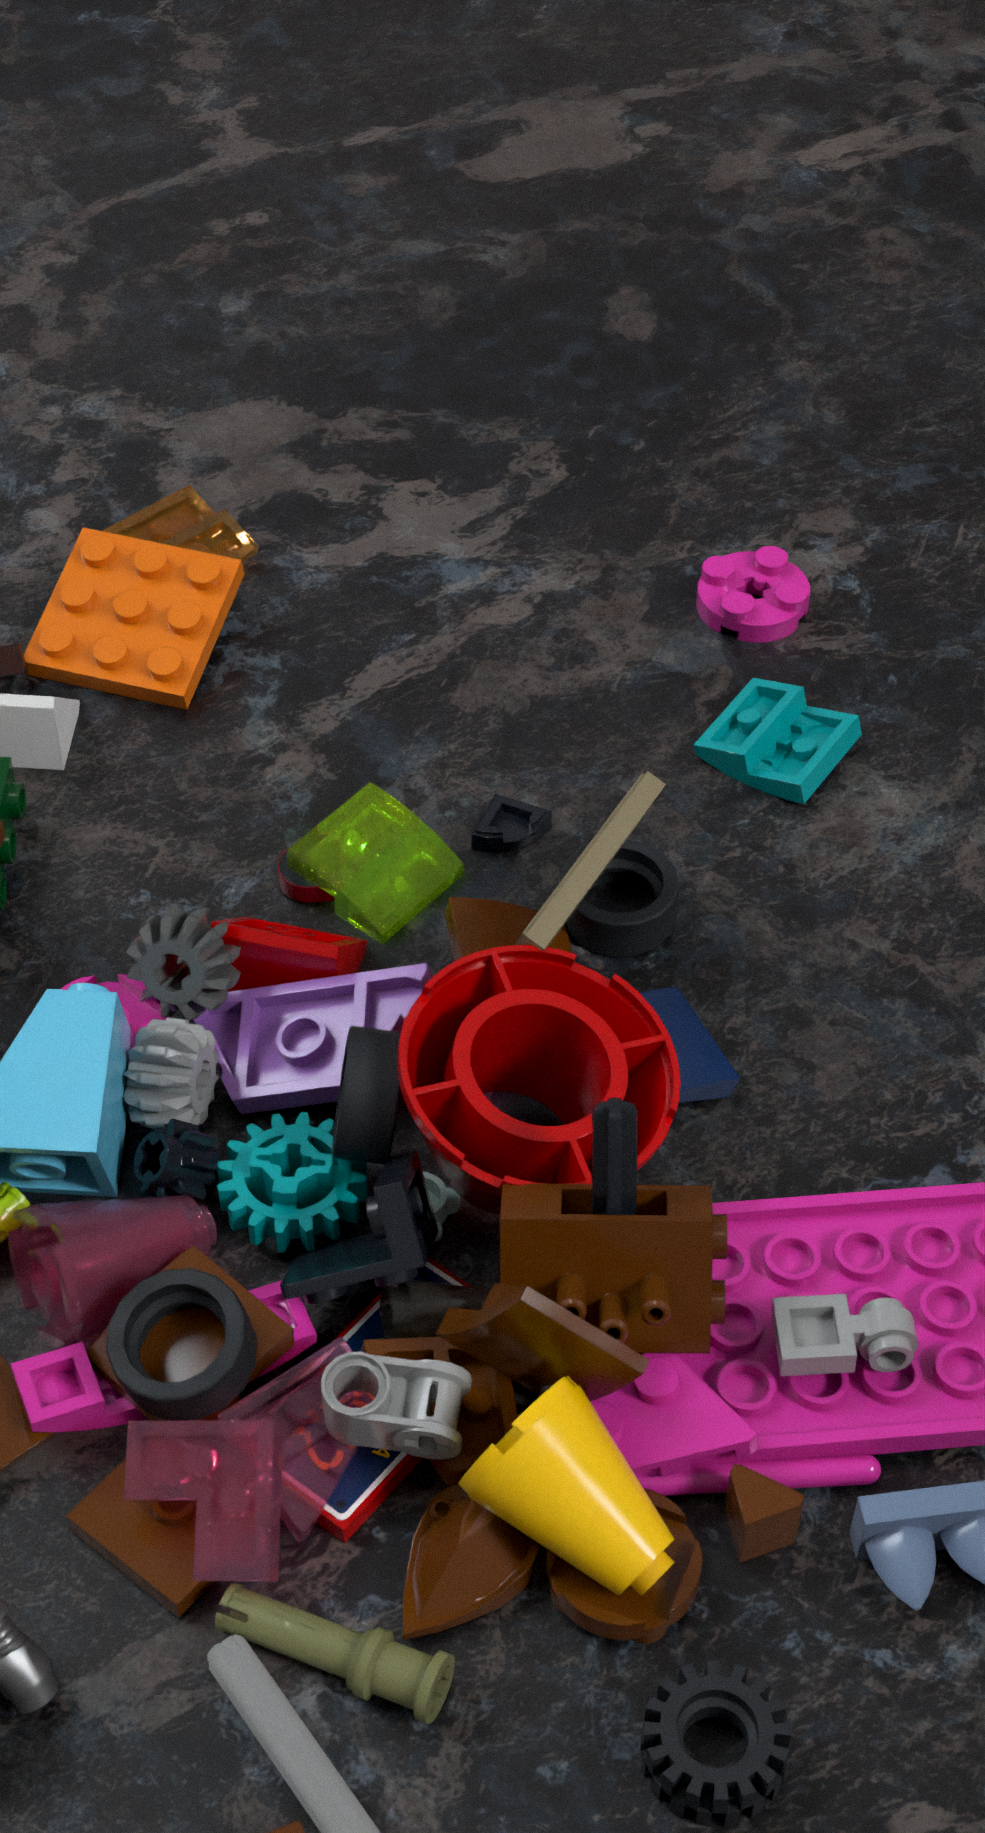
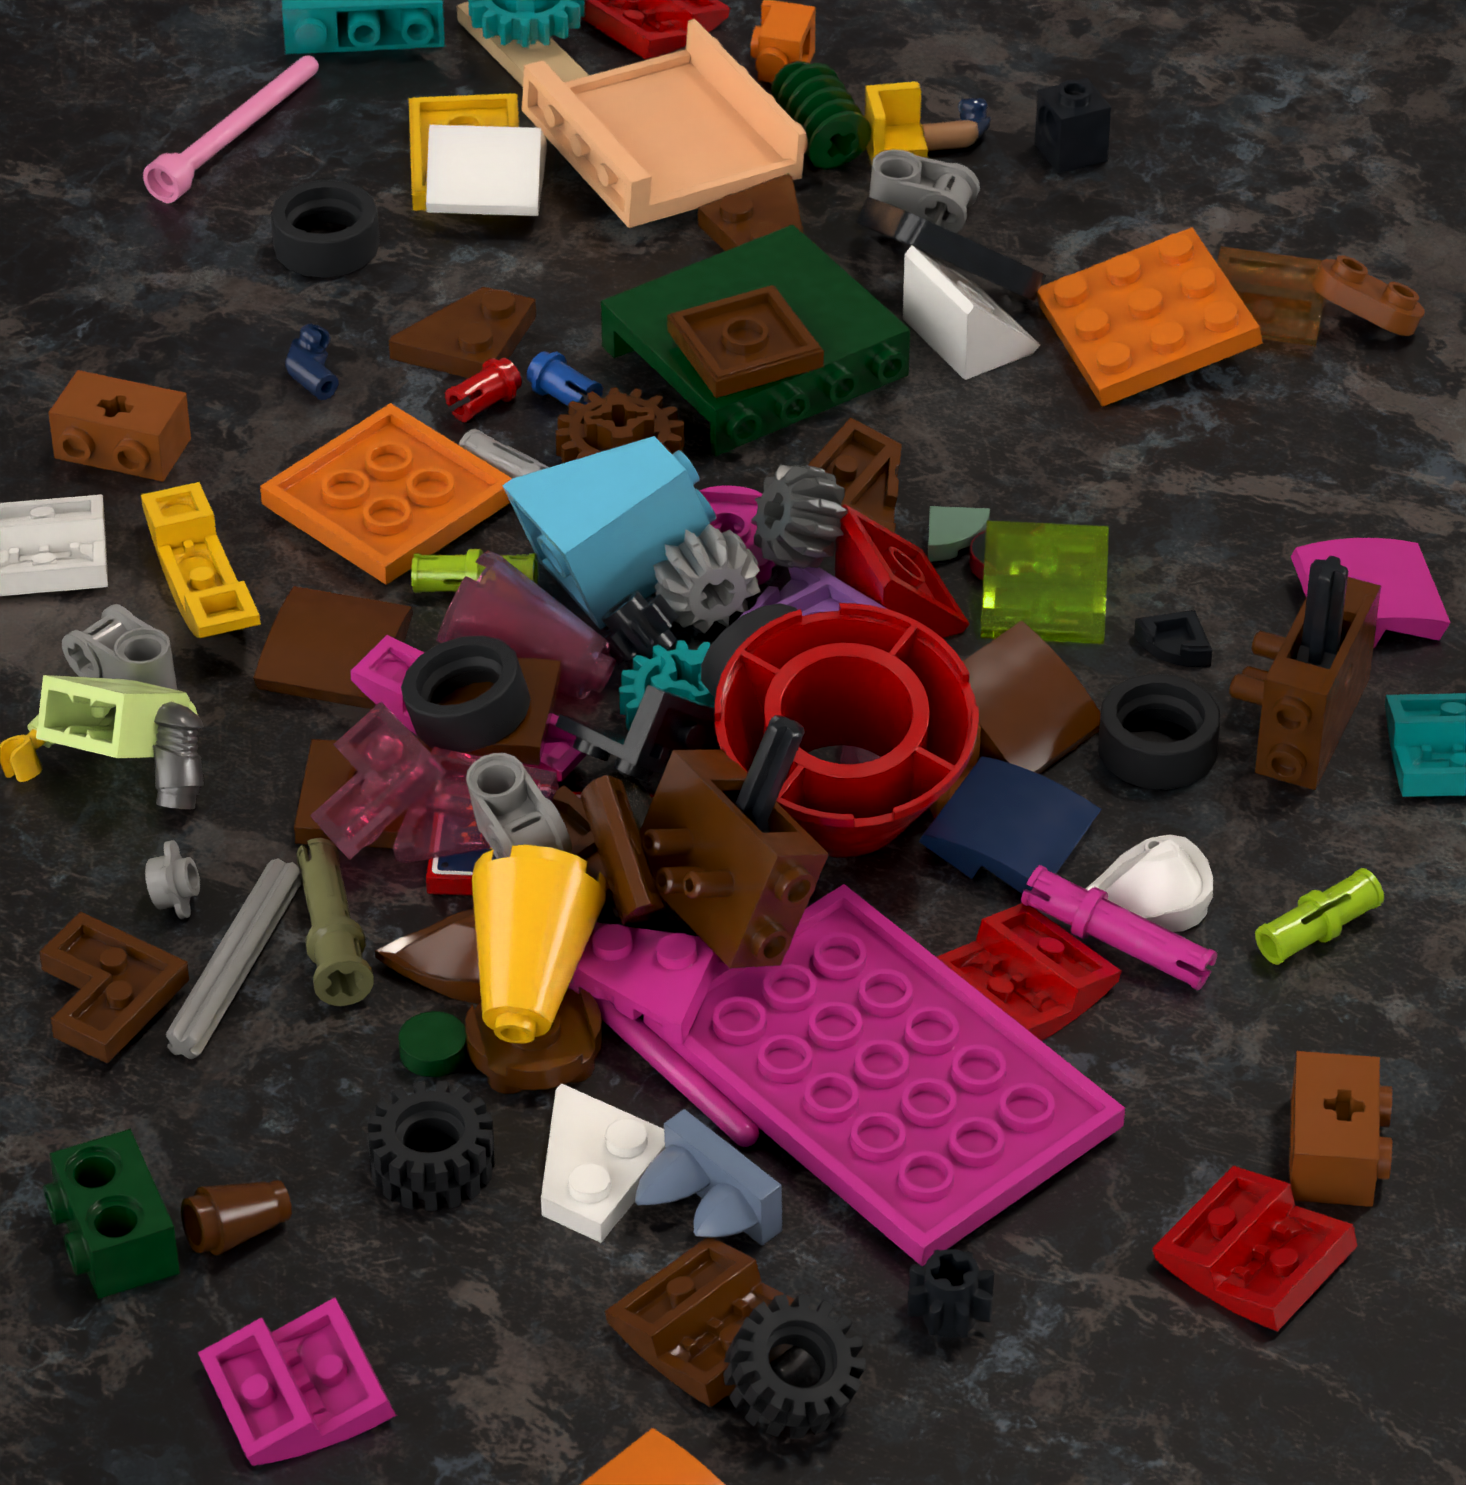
camera: 55 degrees right, 5 degrees down
(116, 897) = (867, 469): none -> reddish brown wing
(161, 1763) = (172, 880): none -> light grey plate
(237, 491) = (1383, 304): none -> dark orange plate
(248, 882) = (953, 530): none -> sand green tile
(565, 1659) = (433, 1044): none -> dark green tile
(569, 684) = (1407, 593): none -> dark pink slope
(591, 863) = (1080, 660): dark tan tile -> none
(661, 727) = (1314, 675): none -> reddish brown piece
(760, 1513) = (633, 1078): reddish brown slope -> none
(788, 1010) = (1161, 881): none -> white piece
(806, 1063) = (1097, 917): none -> dark pink pin
(821, 1143) = (1033, 969): none -> red slope
(822, 1337) = (811, 1021): light grey plate -> none
(823, 1612) = (594, 1162): none -> white wing
(910, 928) = (1332, 907): none -> lime pin

